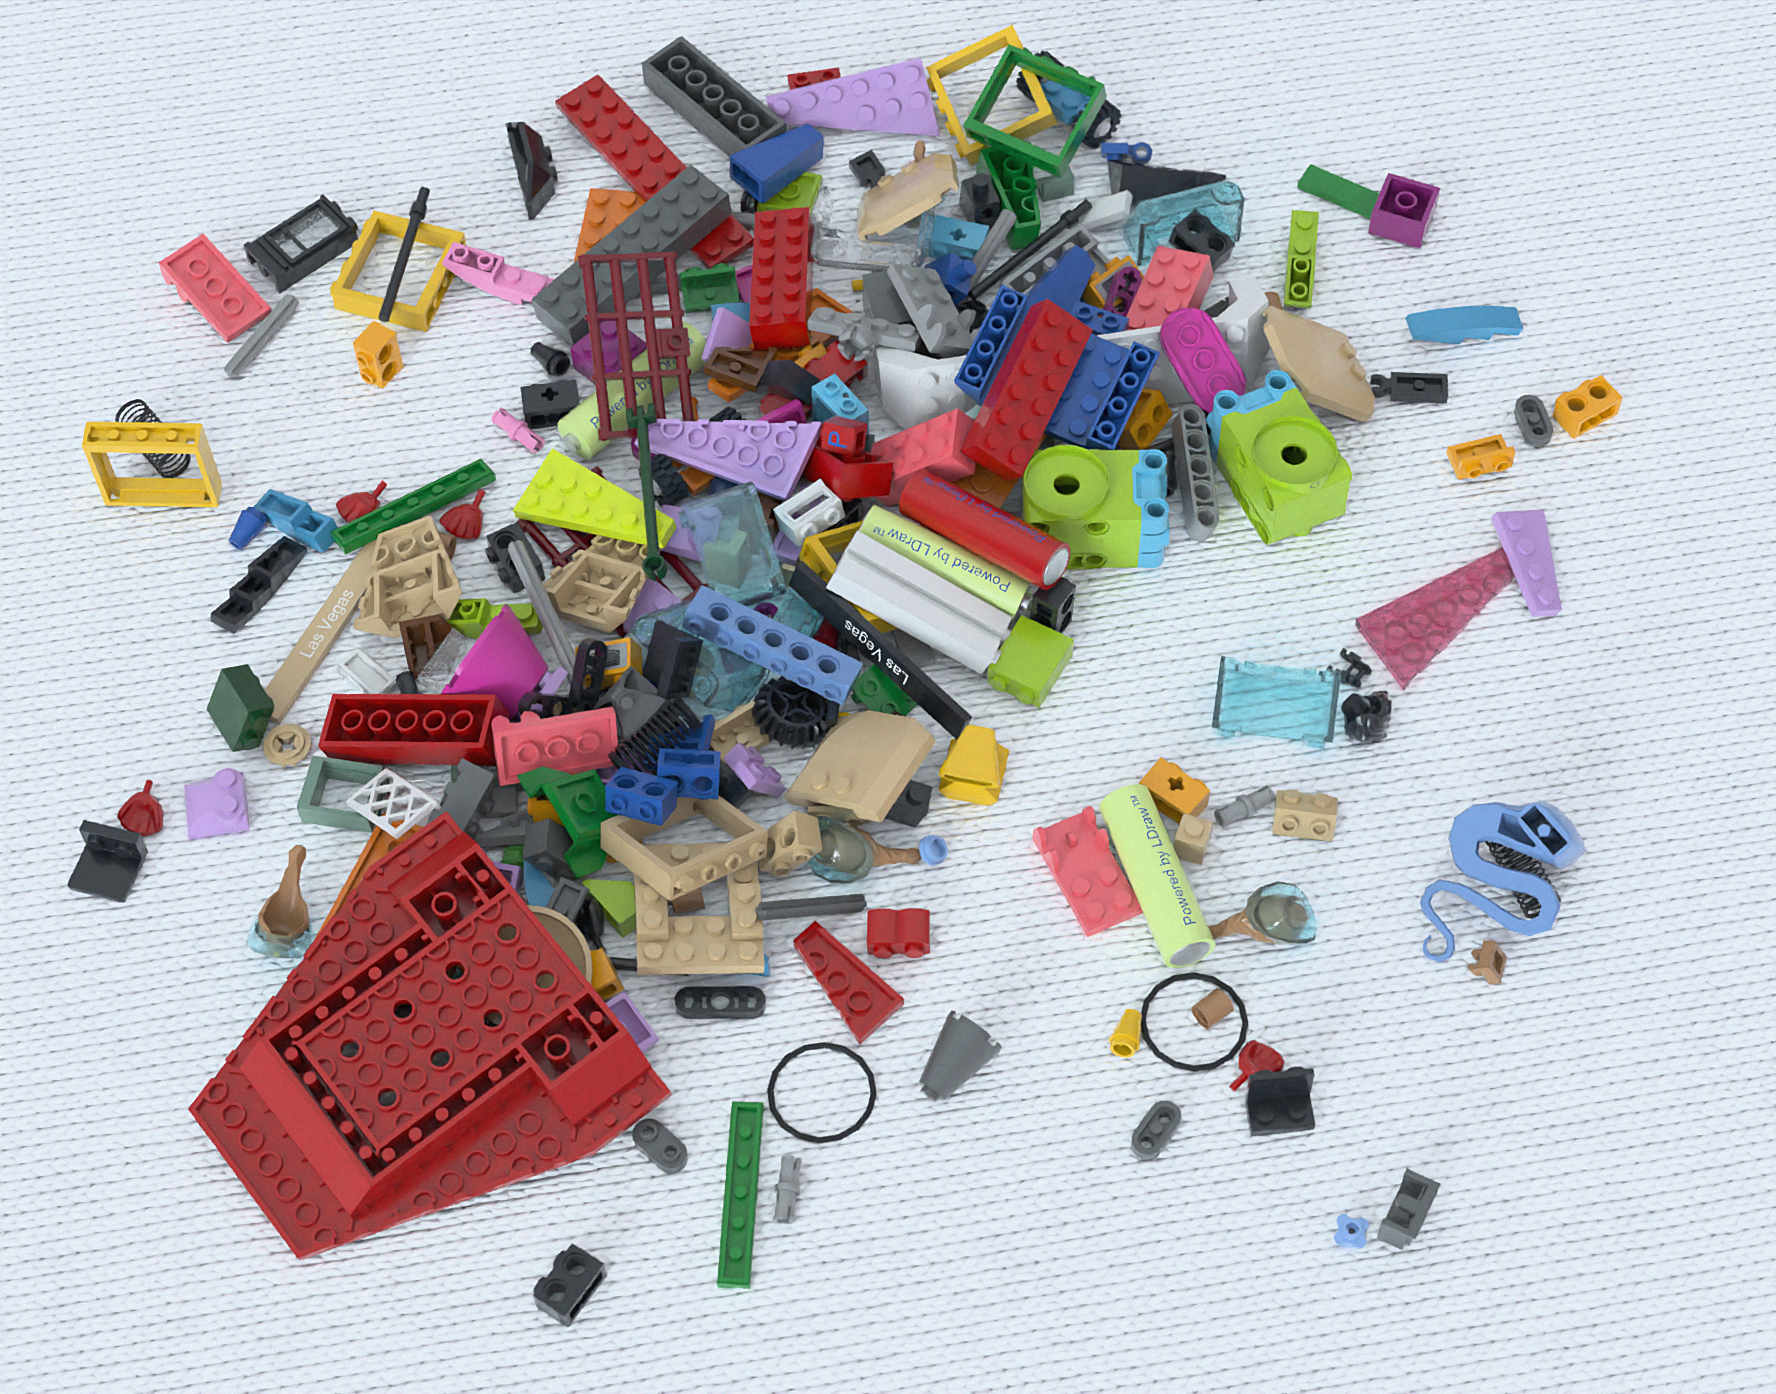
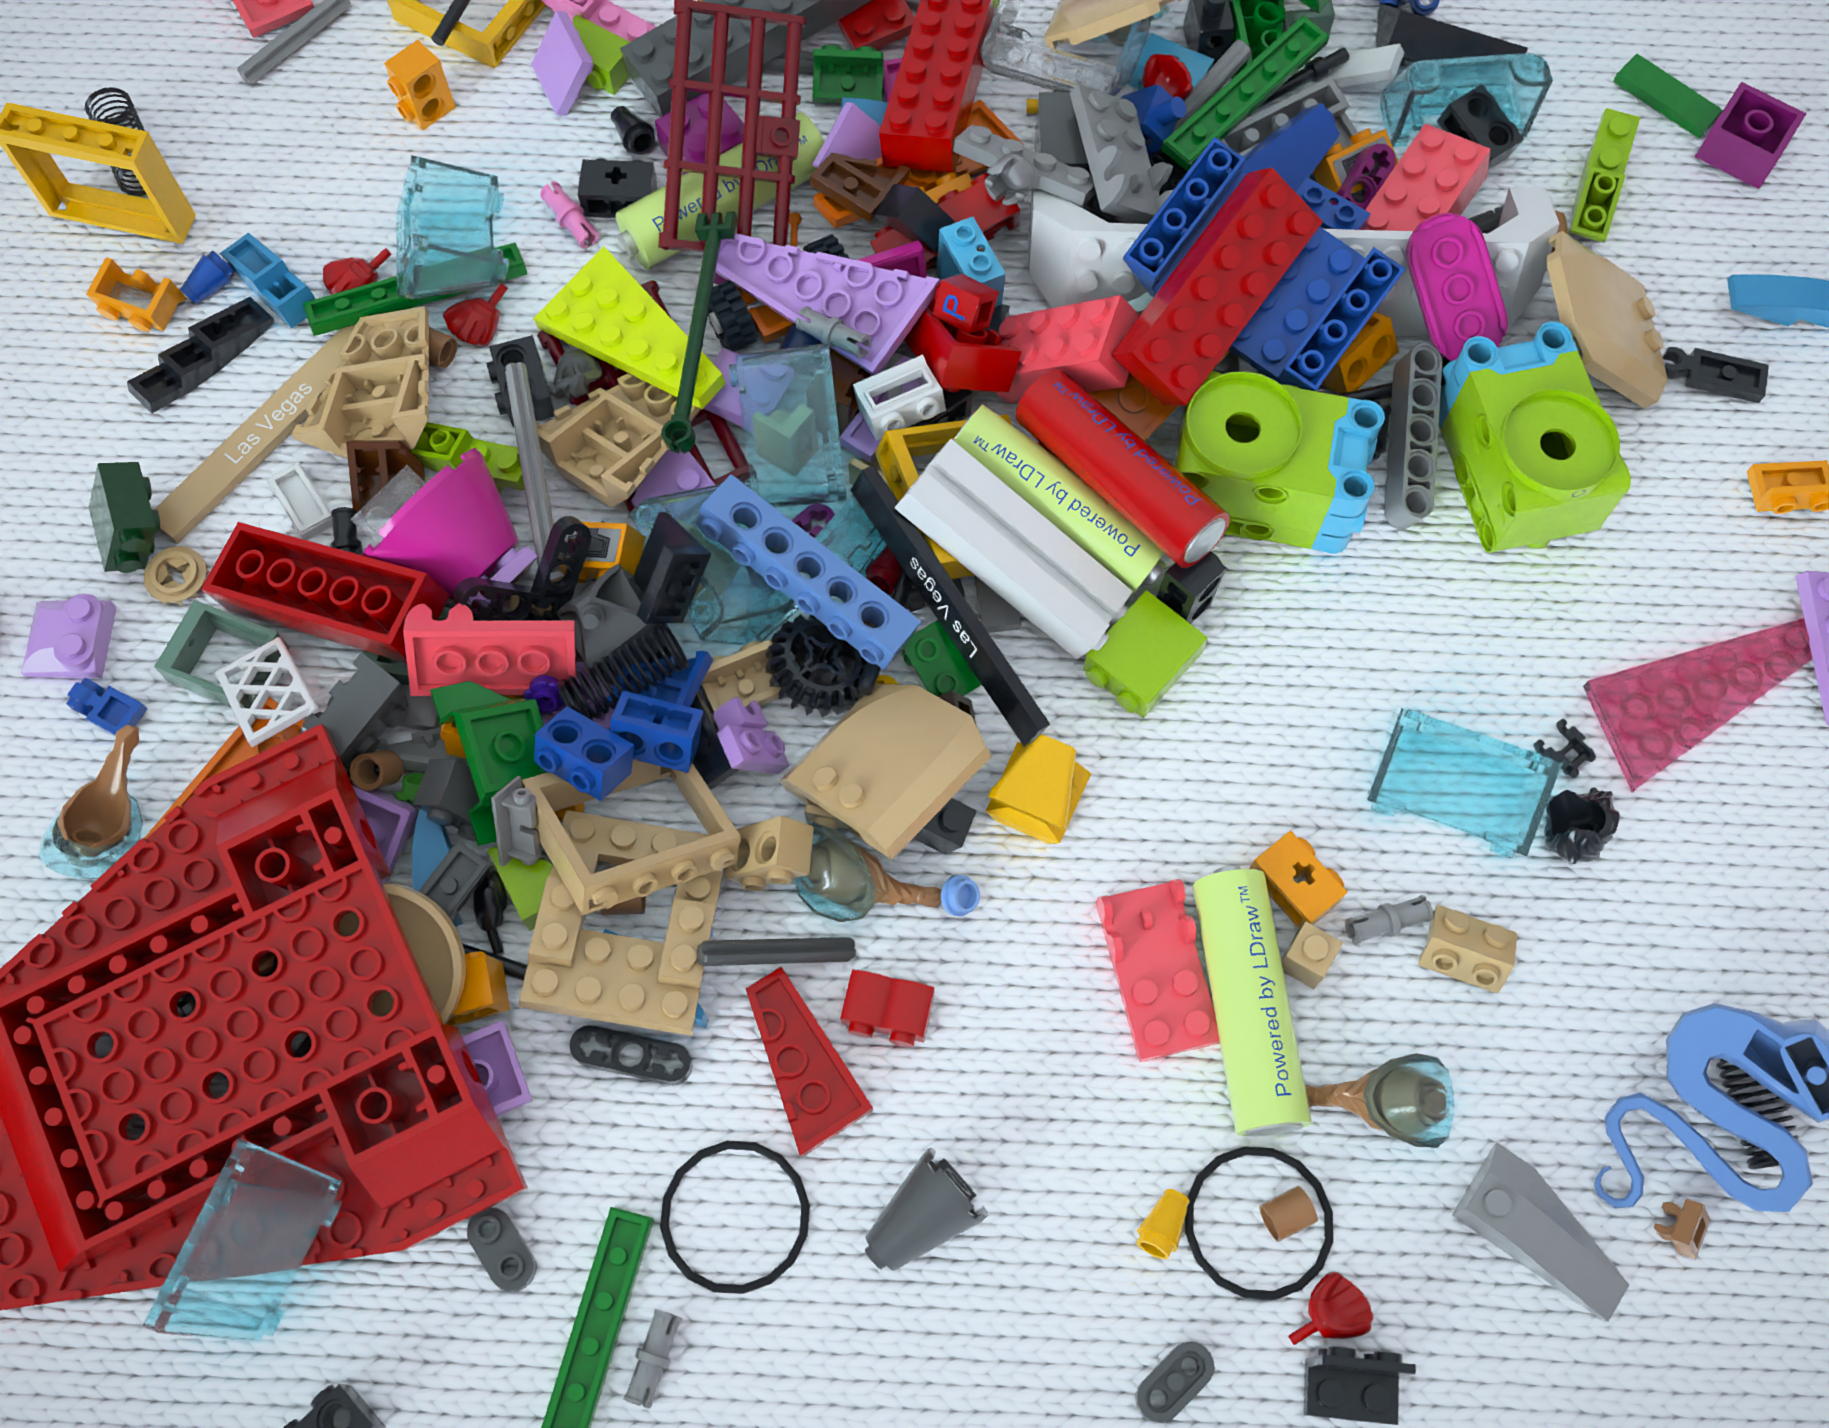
camera: 10 degrees right, 10 degrees up
(195, 553) = (134, 297): none -> light orange window
(269, 848) = (105, 708): none -> blue plate
(425, 458) = (447, 230): none -> clear light blue windscreen
(484, 318) = (562, 63): none -> lavender tile
(488, 1162) = (245, 1248): none -> clear light blue windscreen
(494, 839) = (363, 772): none -> medium nougat beam
(511, 306) = (604, 47): none -> lime slope
(556, 544) = (574, 374): none -> dark grey hat
(597, 760) = (545, 692): none -> dark purple plate
(602, 841) = (514, 824): none -> light grey hinge
(749, 473) = (833, 332): none -> light grey pin
(957, 243) = (1168, 73): none -> red piece
(1018, 246) = (1245, 92): none -> green tile
(1382, 983) = (1531, 1224): none -> light grey wedge

